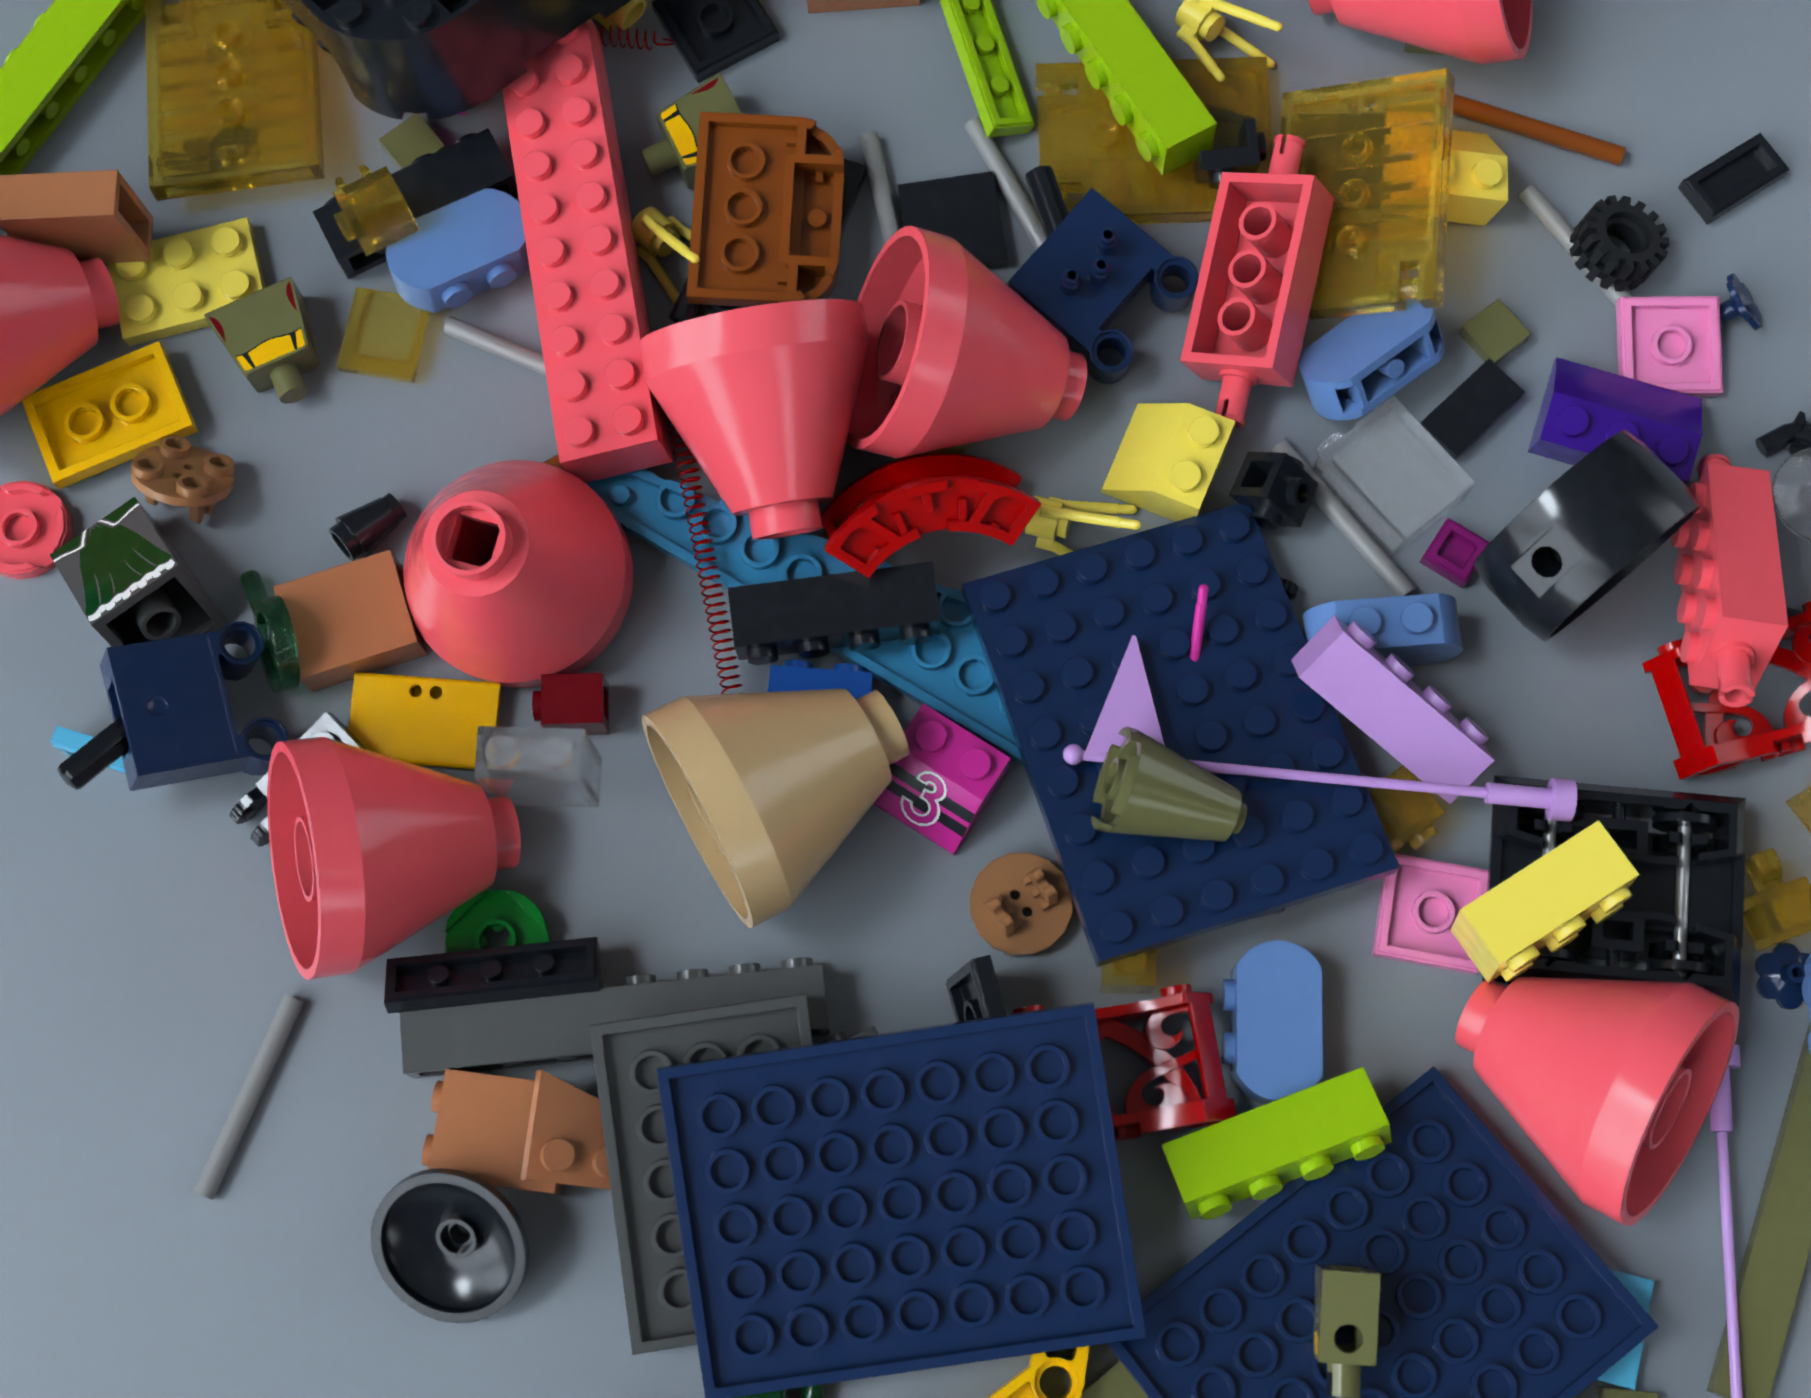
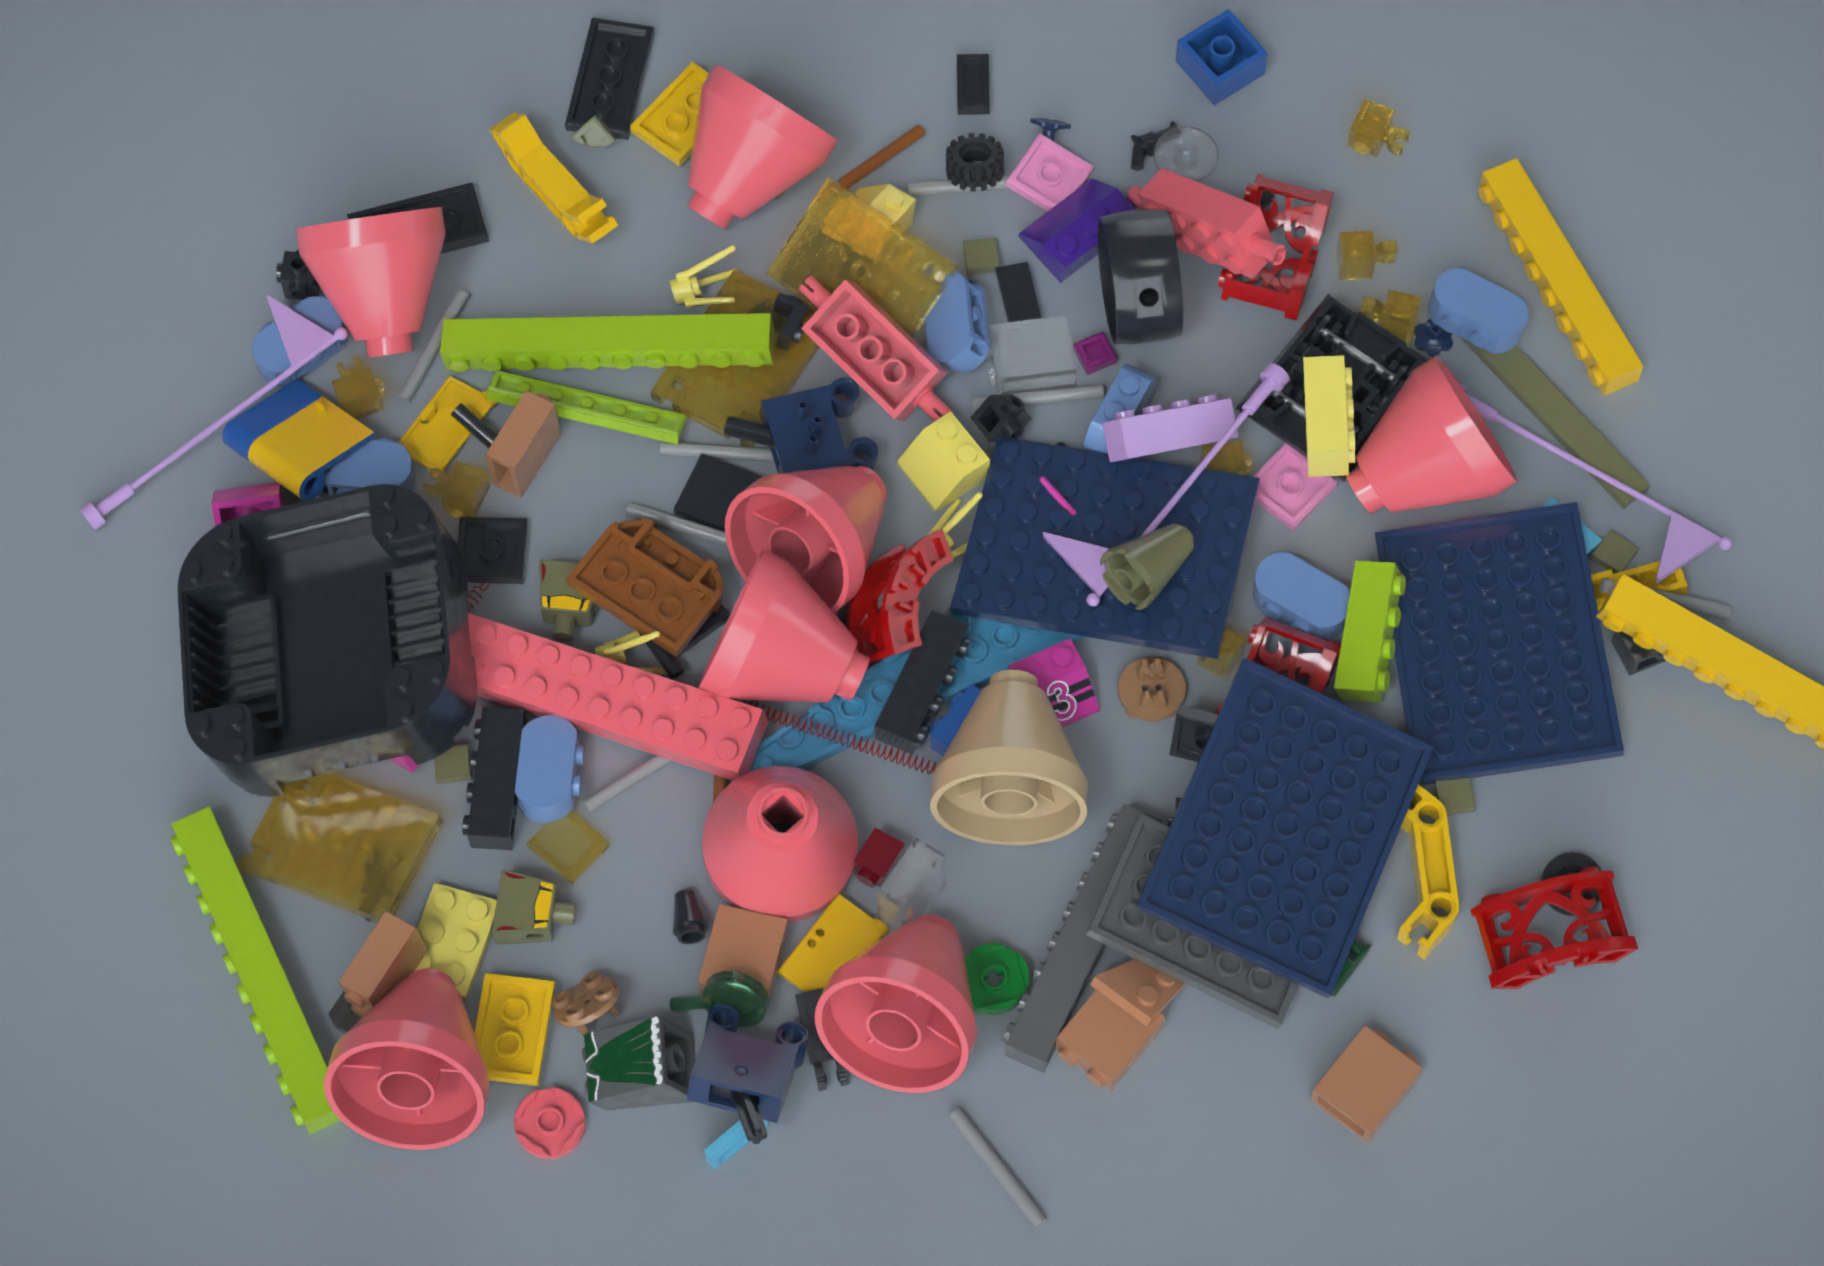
camera: 60 degrees left, 10 degrees down
(373, 210) = (500, 792): clear yellow brick -> none
(433, 1261) = (1180, 1093): black dish -> none
(492, 975) = (1017, 982): black tile -> none
(1343, 1298) = (1484, 644): olive torso -> none

